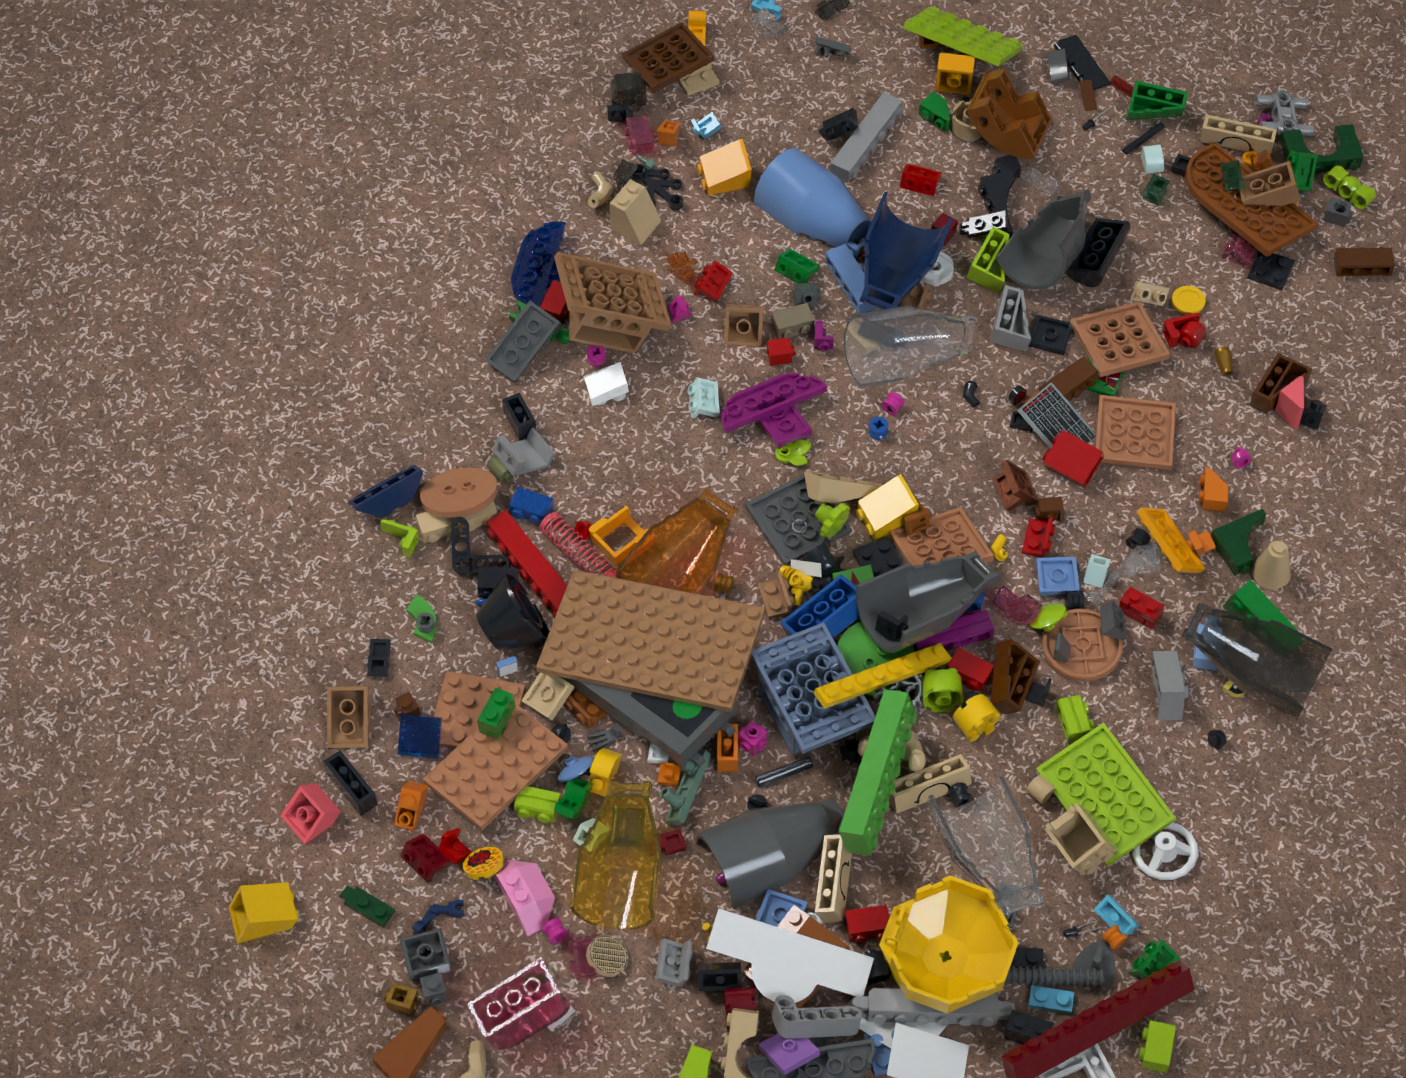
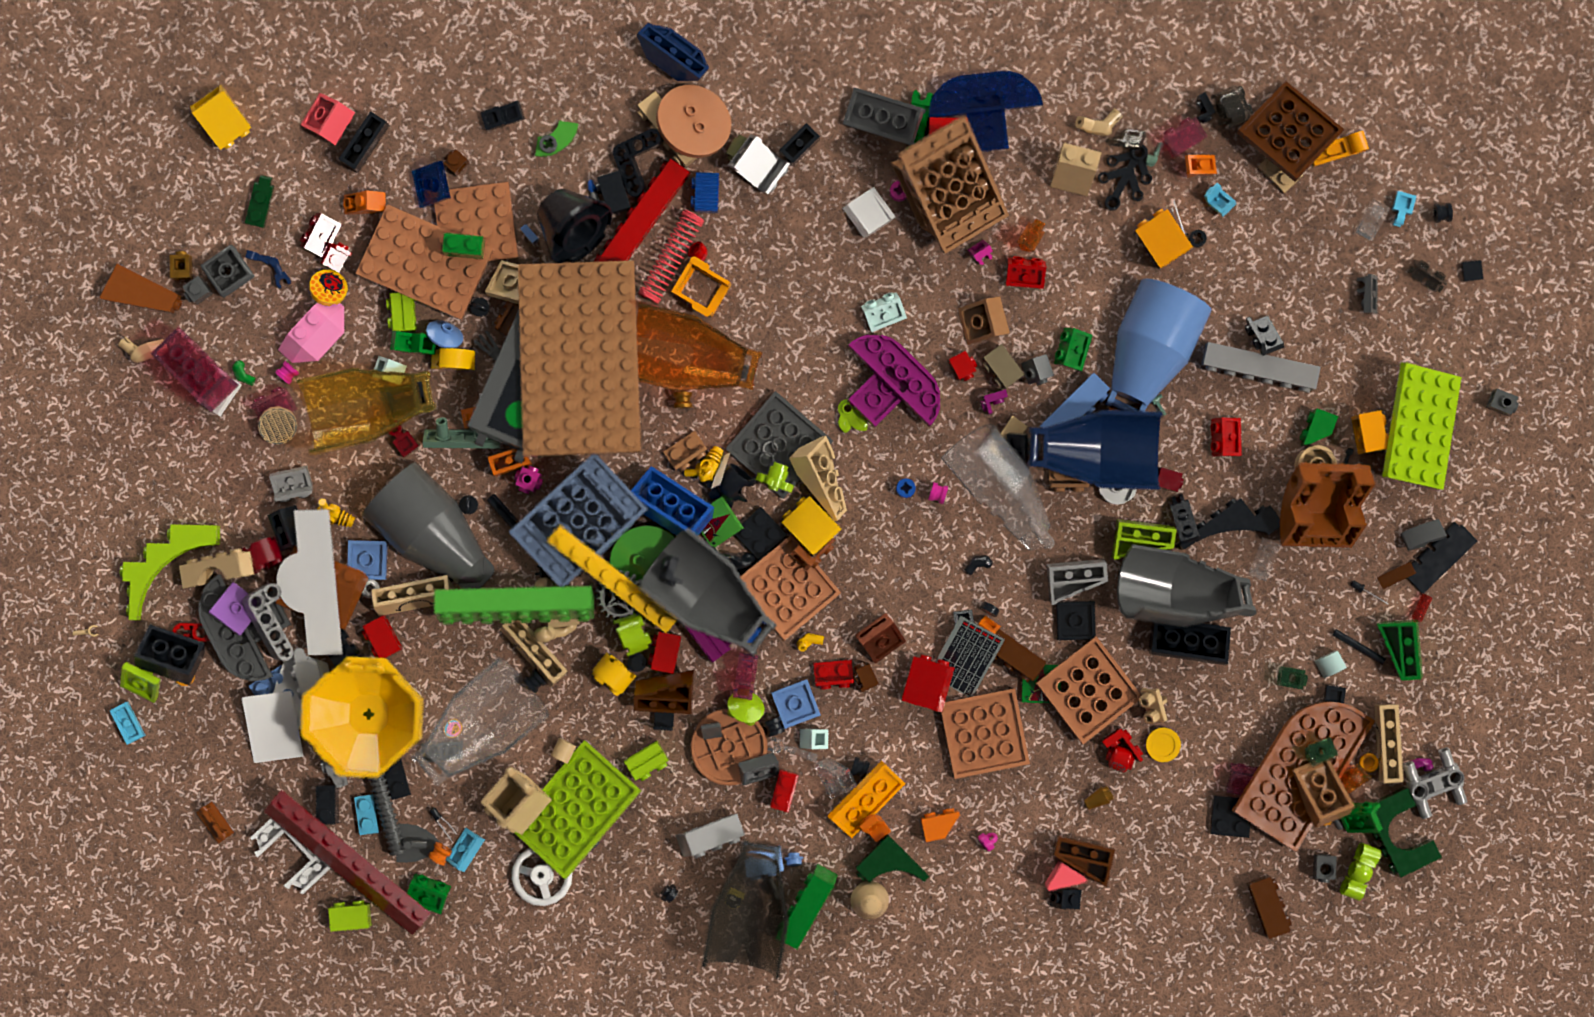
camera: 65 degrees right, 30 degrees up
(348, 716) = (433, 113): medium nougat slope -> none
(409, 534) = (628, 94): lime bracket -> none

